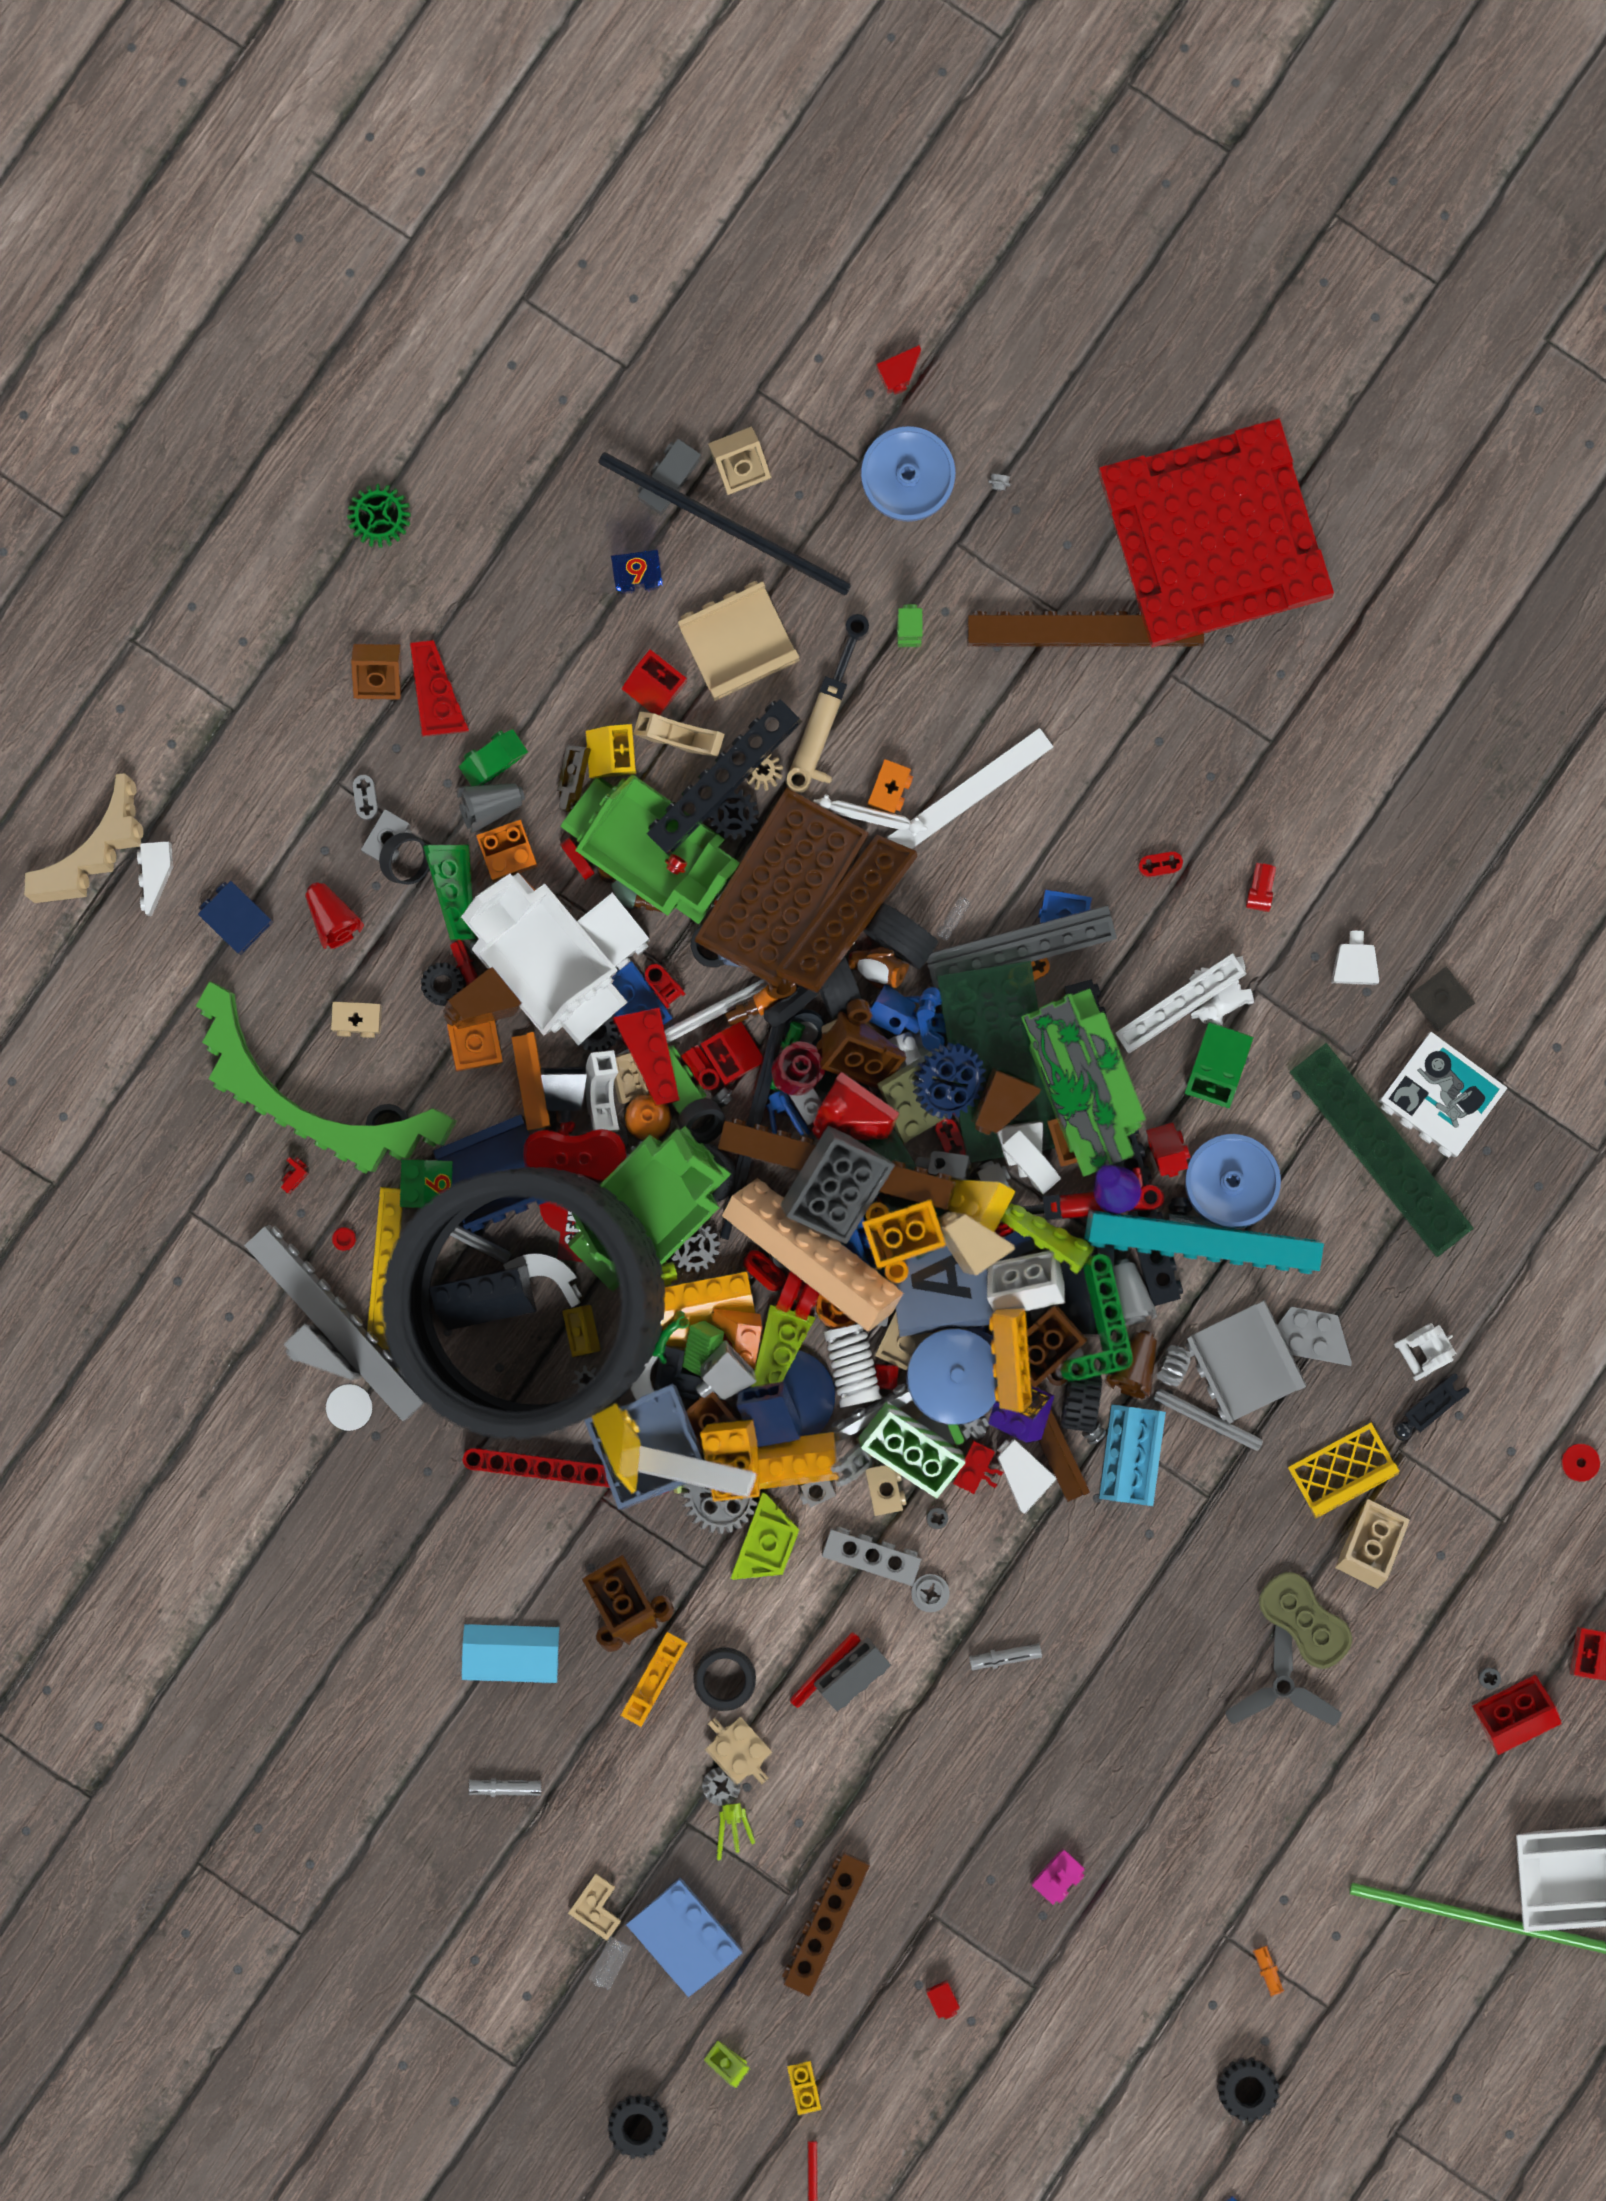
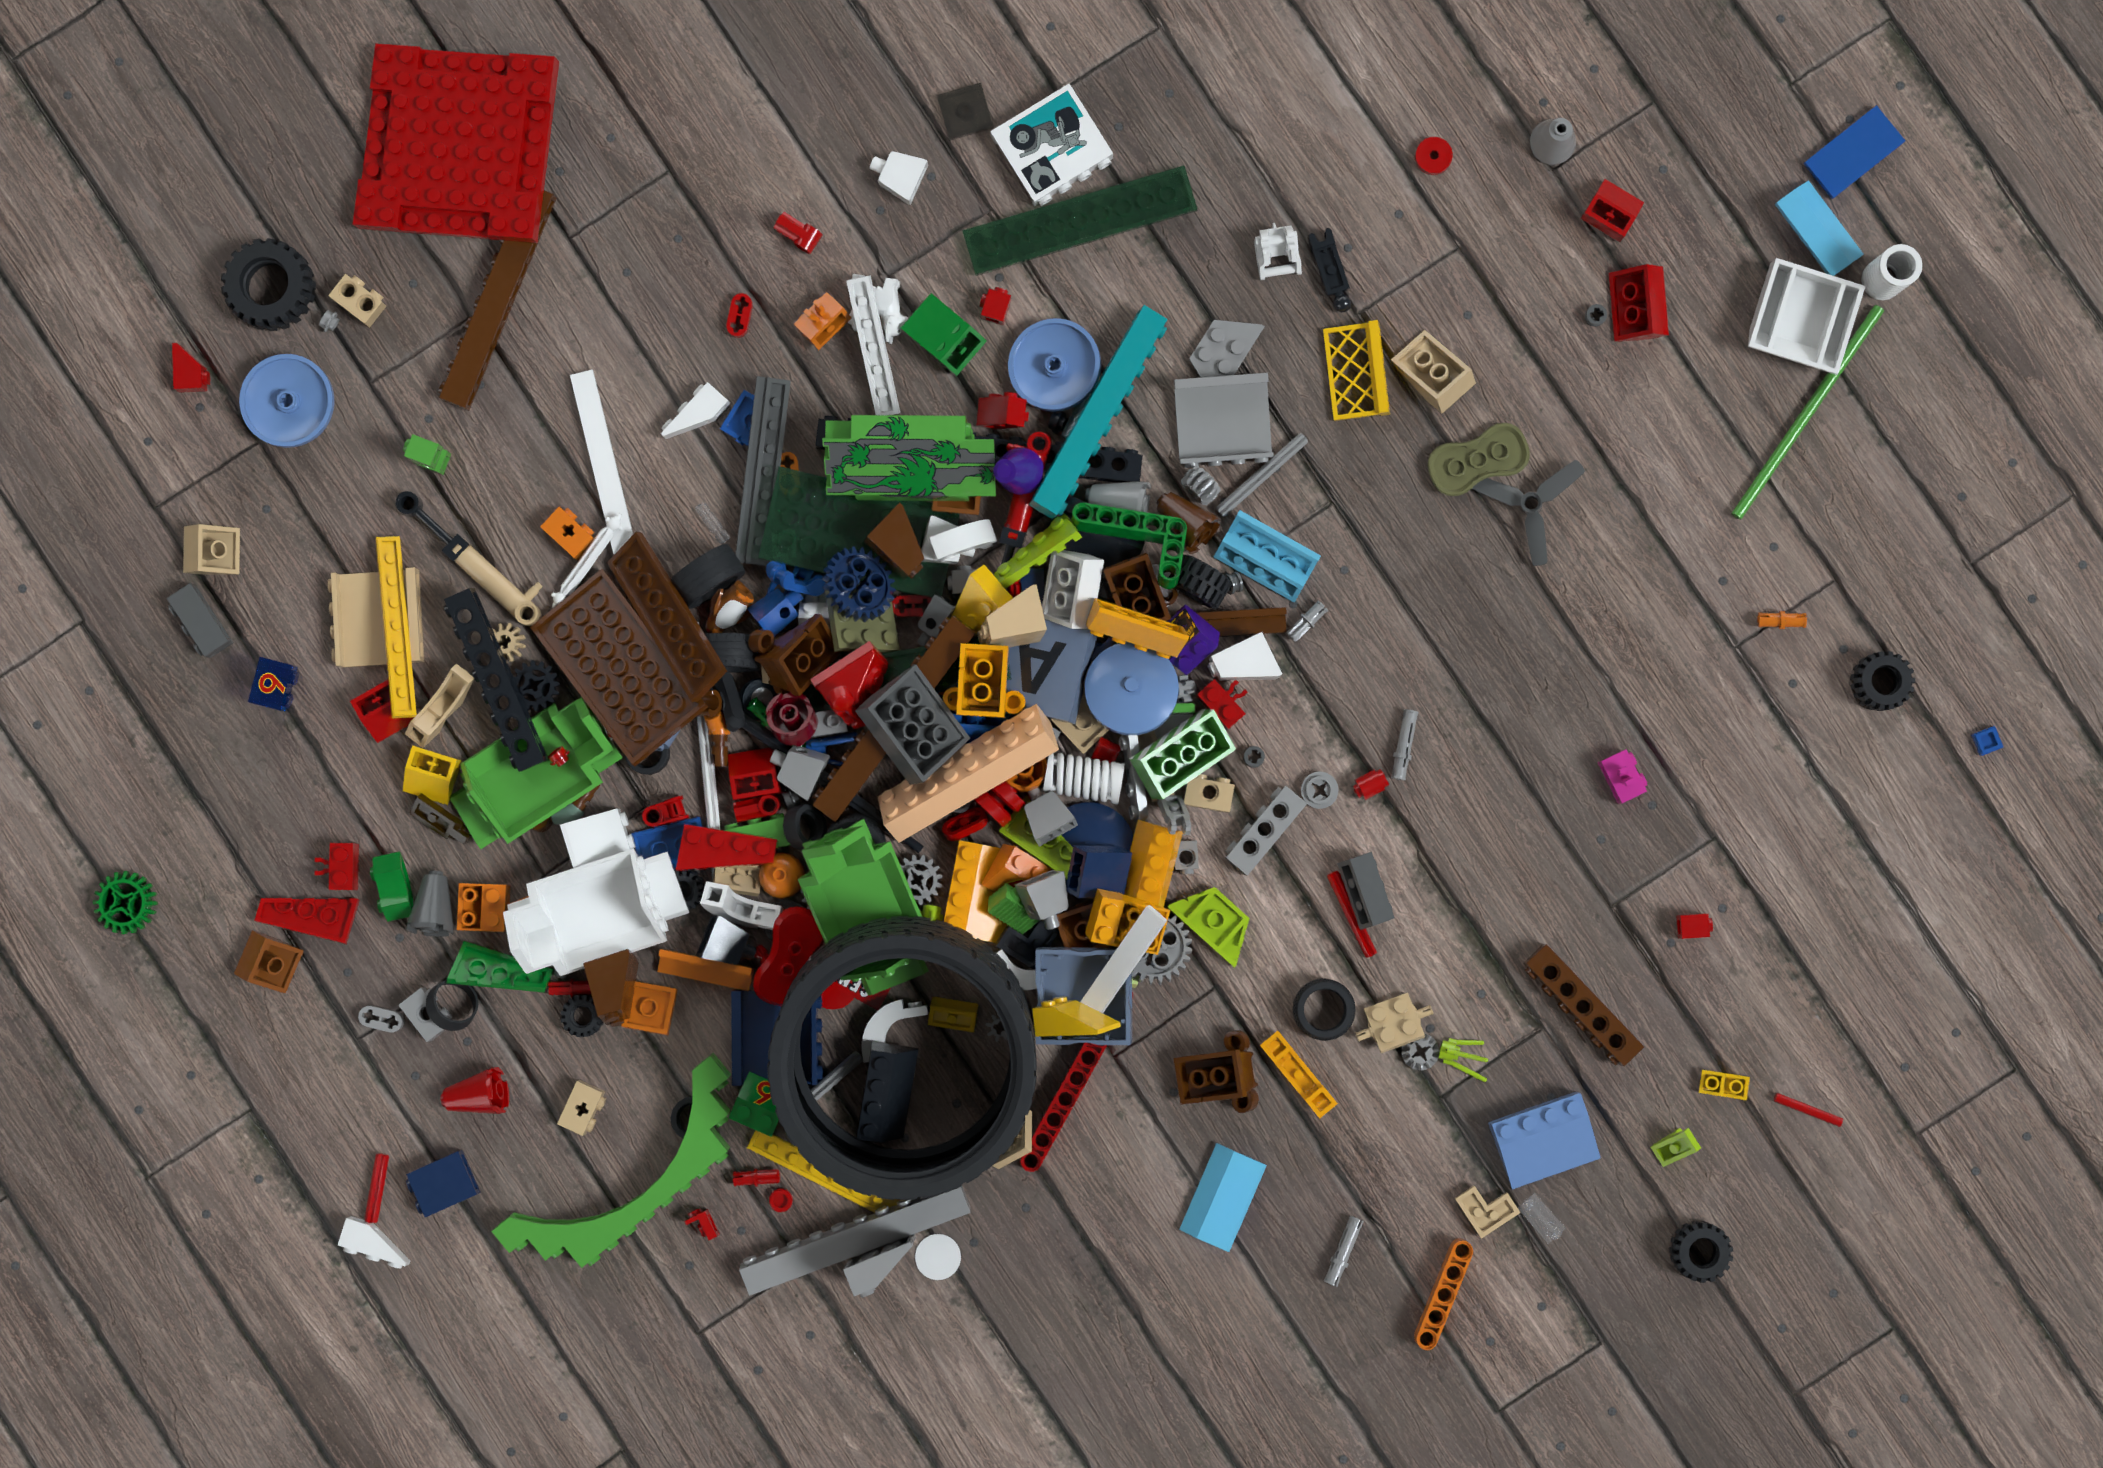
camera: 65 degrees left, 0 degrees up
(97, 855) = (331, 1290): tan arch -> none
(206, 857) = (376, 1188): none -> red axle
(356, 1207) = (756, 1177): none -> red axle
(481, 1443) = (1020, 1147): none -> tan plate
(491, 1903) = (1443, 1306): none -> orange beam
(492, 704) = (343, 866): none -> red brick
(577, 859) = (517, 846): red beam -> none
(667, 1332) = (986, 936): green piece -> none
(724, 523) = (262, 587): black axle -> none
(736, 663) = (395, 627): none -> yellow tile
(754, 1095) = (800, 769): none -> light grey torso
(802, 1345) = (1047, 816): none -> light grey torso
(954, 1639) = (1370, 784): none -> red brick
(1021, 382) = (243, 268): none -> black tyre
(1026, 499) = (356, 302): none -> tan brick
(1057, 866) = (701, 410): none -> white slope
(1085, 1517) = (1307, 621): none -> light grey axle
(1186, 945) = (822, 320): none -> orange brick
(1267, 1102) = (995, 305): none -> red brick

